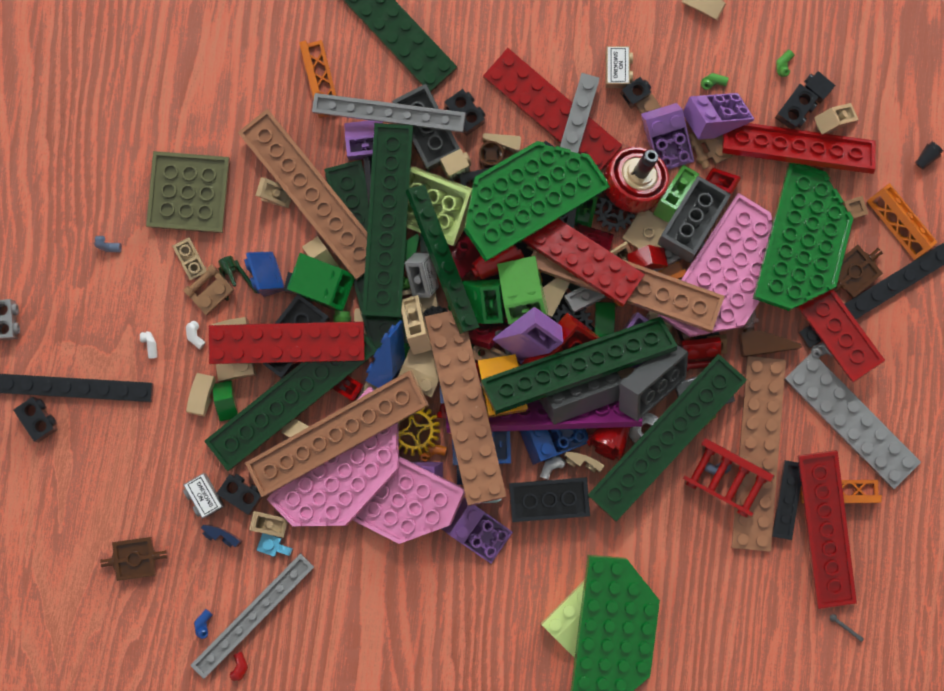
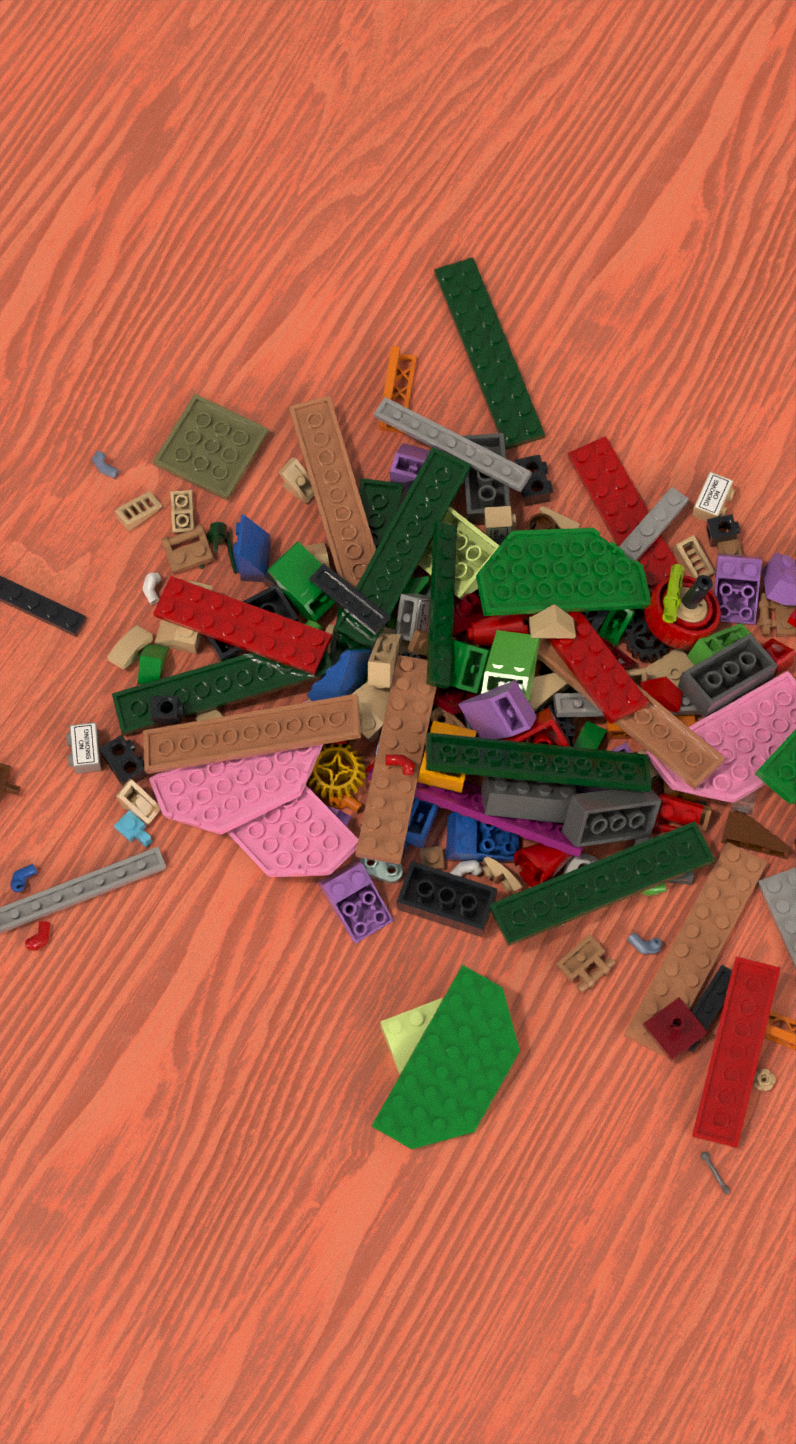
camera: 25 degrees right, 15 degrees down
(143, 275) = (127, 508): none -> tan slope
(151, 344) = (103, 578): white arm -> none
(215, 533) = (83, 792): dark blue slope -> none
(248, 439) = (158, 705): none -> black brick
(349, 388) = (285, 697): red slope -> none
(365, 286) = (349, 599): none -> black plate
(436, 295) = (419, 642): none -> medium nougat plate
(472, 411) = (400, 760): none -> red arm
(521, 469) = (432, 857): none -> medium nougat plate
(541, 242) = (552, 624): none -> tan slope
(619, 130) = (696, 548): none -> tan slope
(628, 178) = (672, 600): none -> lime pin
(673, 501) = (582, 957): none -> medium nougat plate
(744, 468) = (659, 934): red fence -> none
(771, 529) = (675, 1029): none -> dark red tile
(859, 536) = (768, 1084): none -> tan plate

